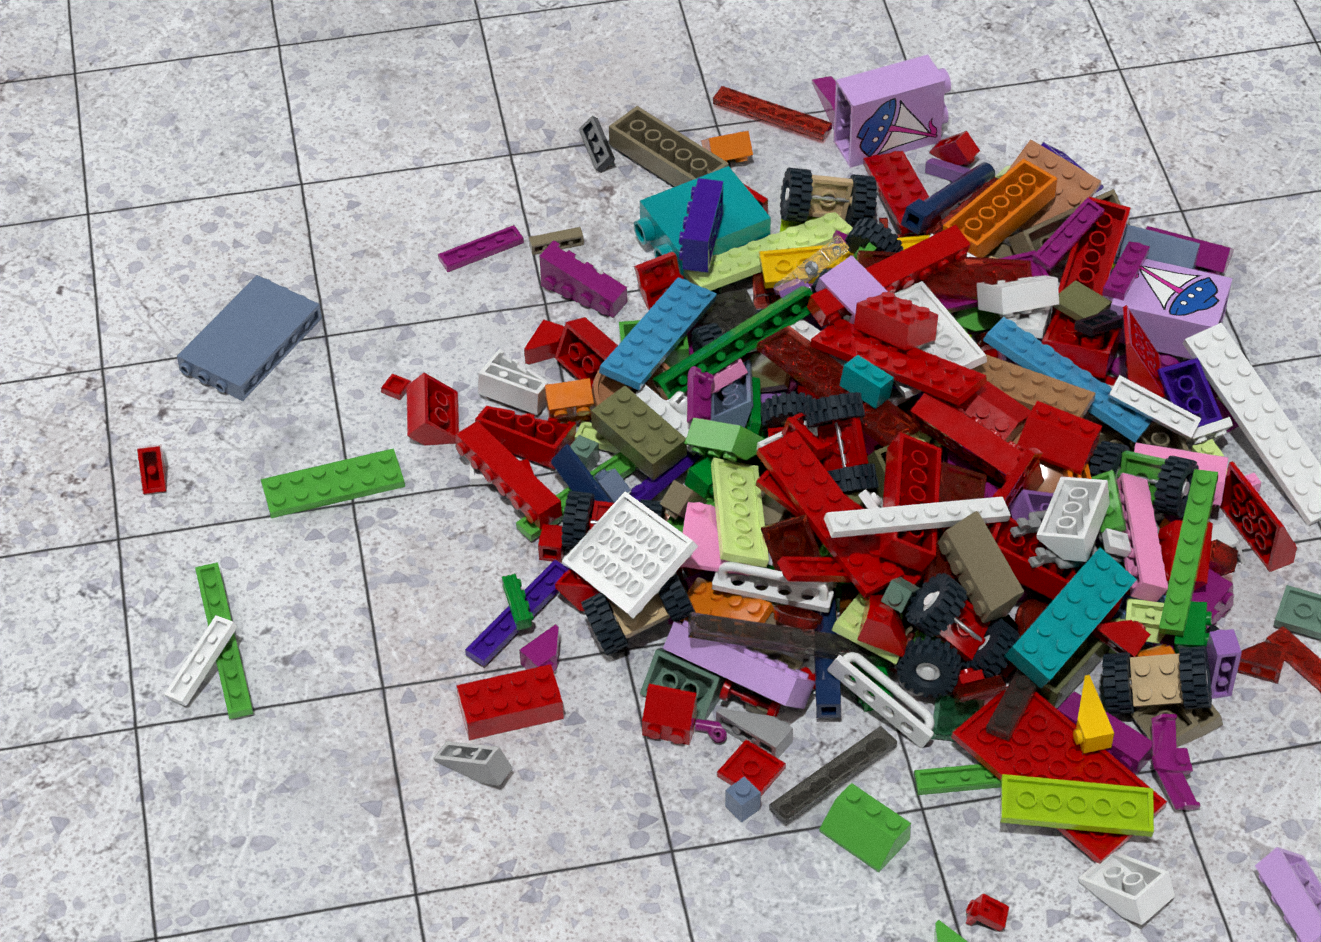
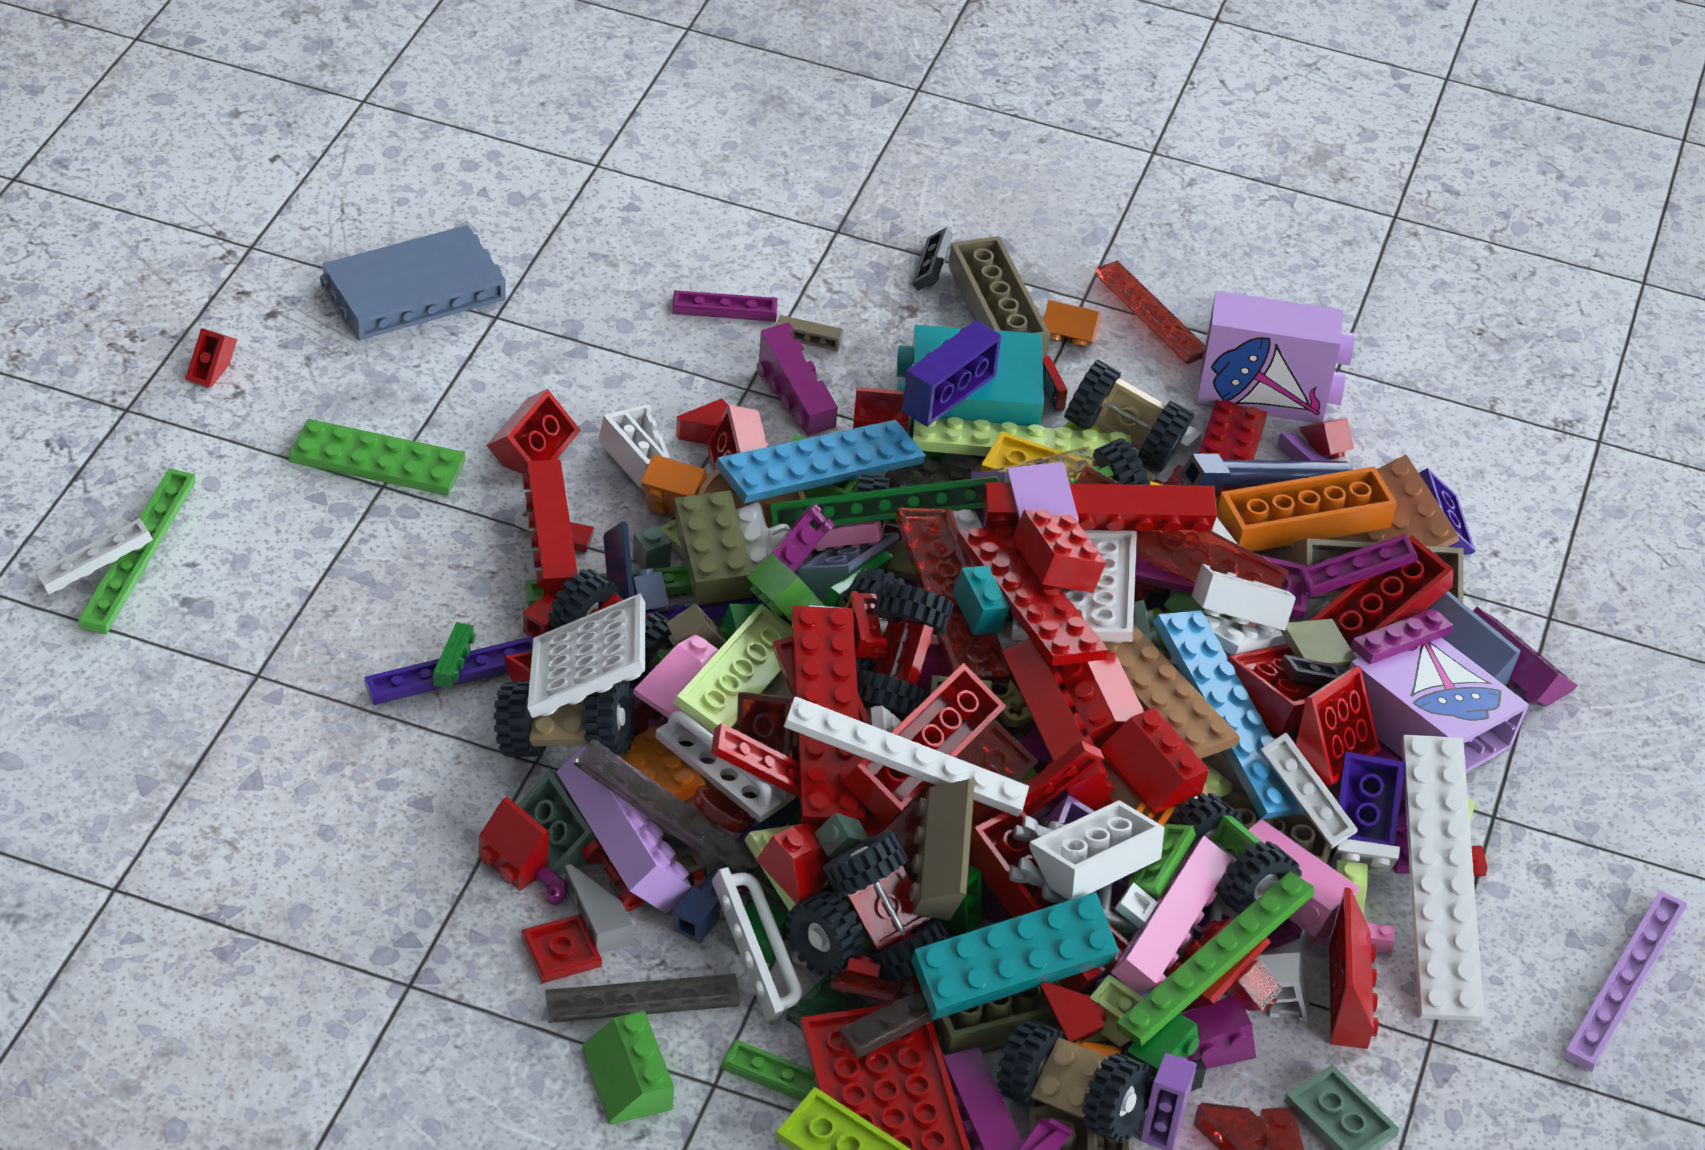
camera: 25 degrees right, 5 degrees down
(395, 386) = (518, 394): red tile -> none
(475, 761) = (280, 791): light grey slope -> none
(510, 702) = (364, 750): red brick -> none
(527, 435) = (606, 498): red wedge -> none
(542, 650) = (442, 720): magenta slope -> none
(742, 799) = (521, 970): sand blue brick -> none
(1093, 726) = (963, 1083): yellow slope -> none

